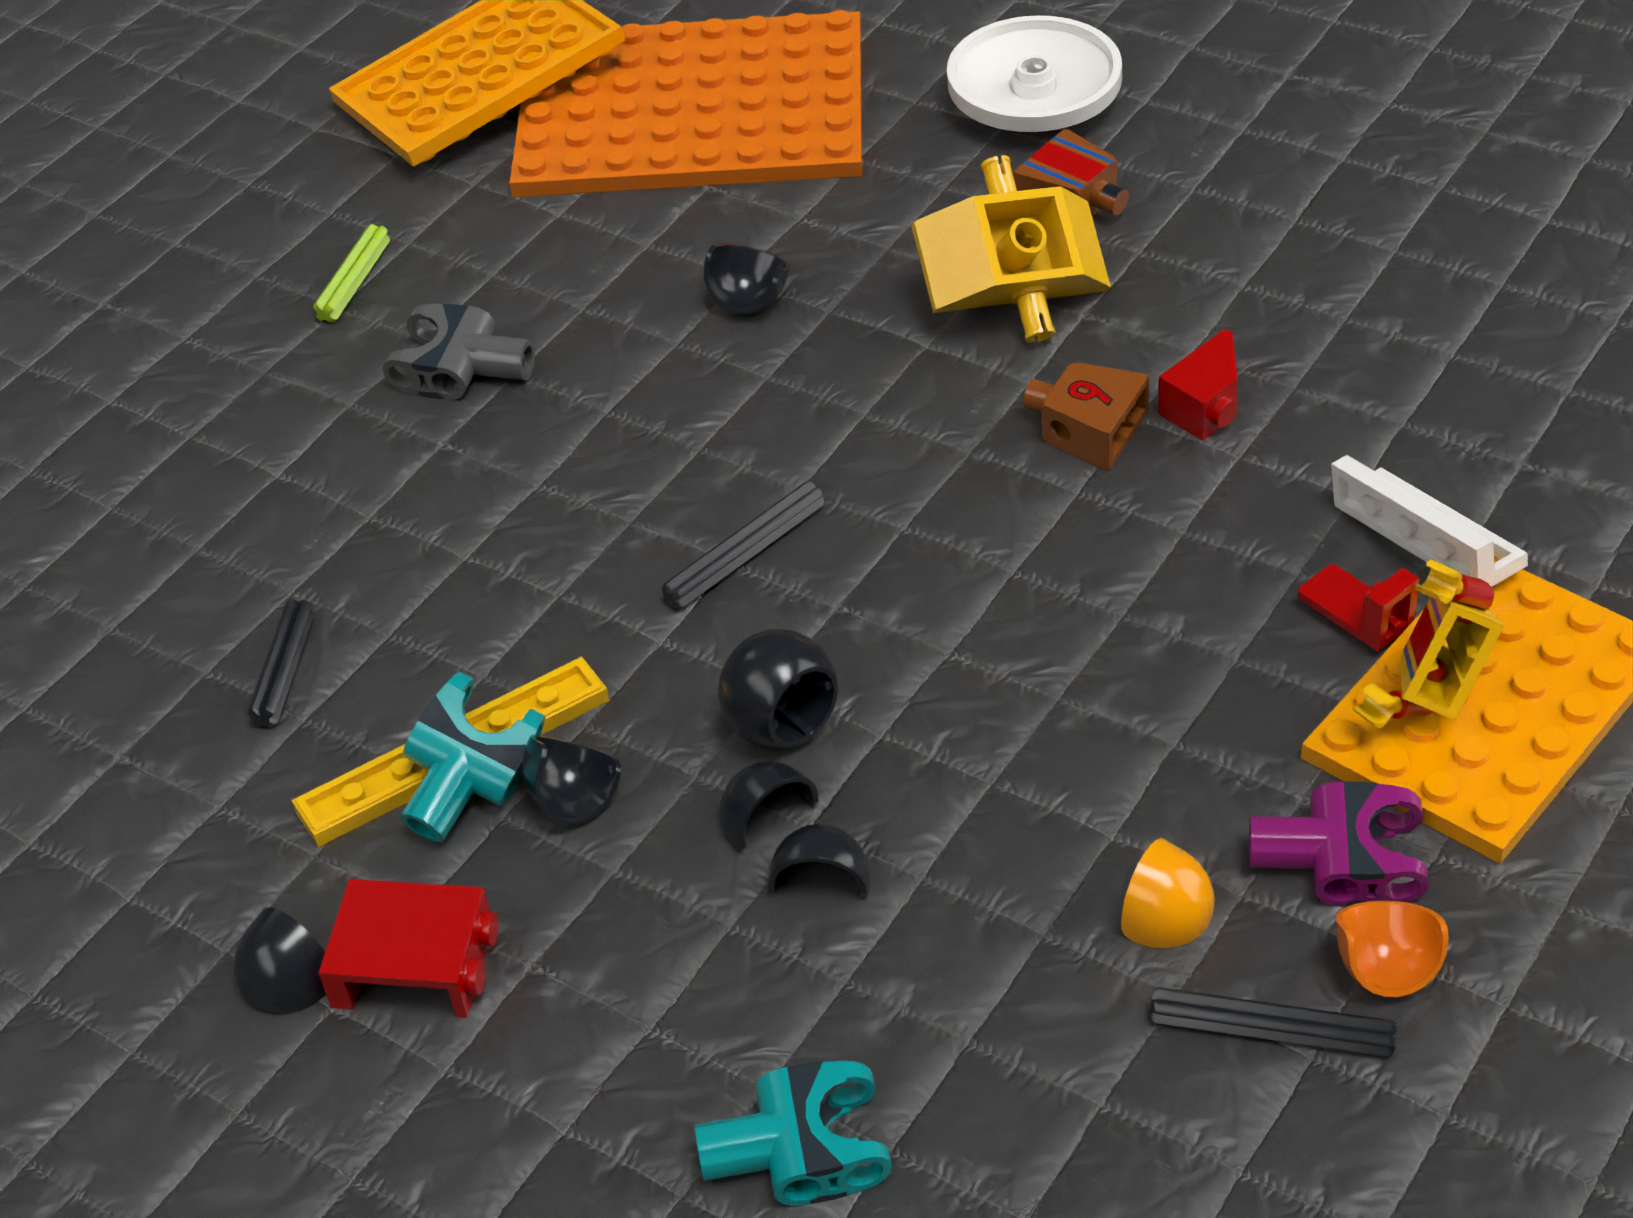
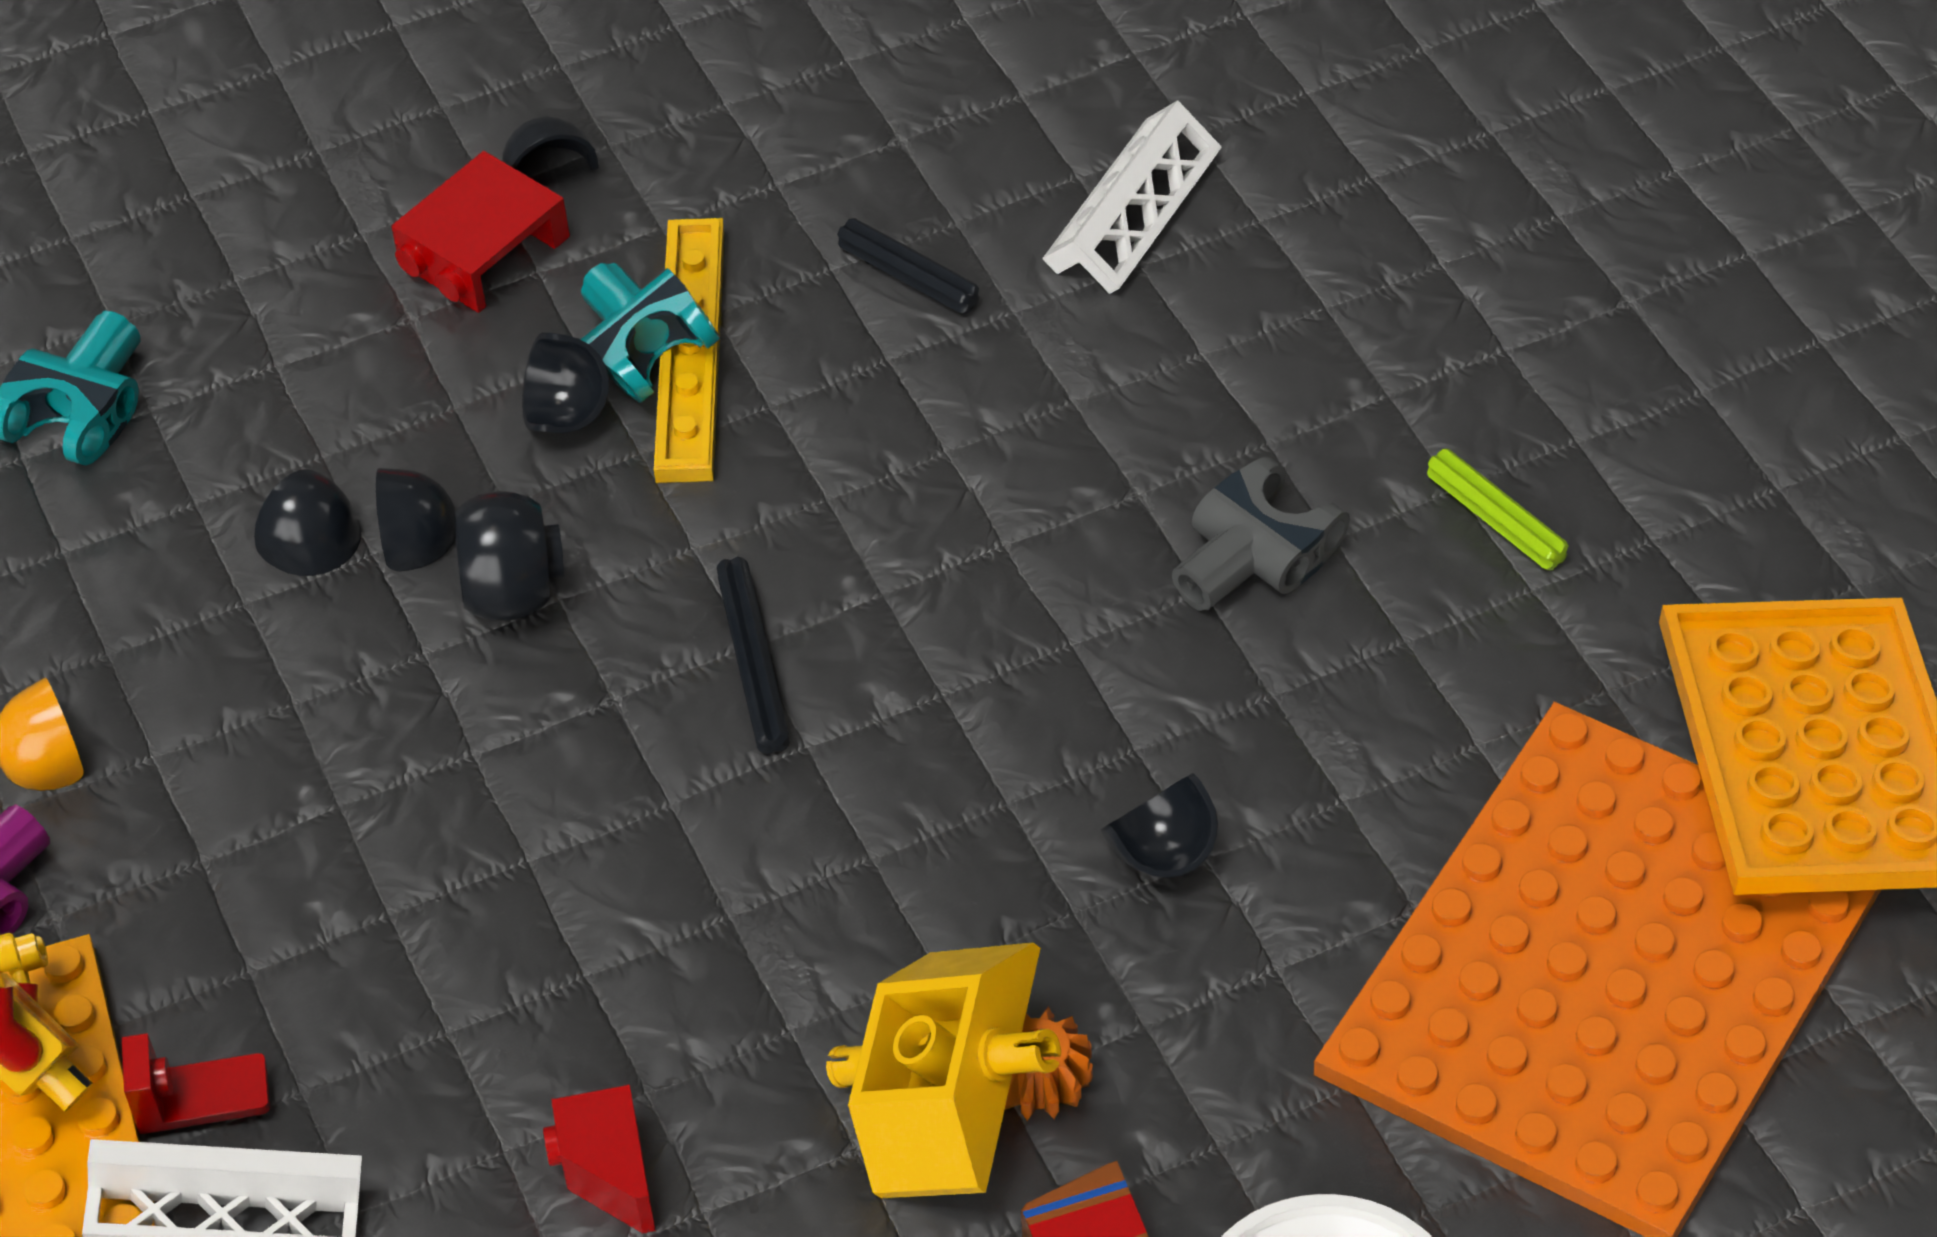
camera: 120 degrees right, 5 degrees up
(129, 572) = (1118, 189): none -> white fence
(1090, 410) = (666, 1025): dark orange torso -> none

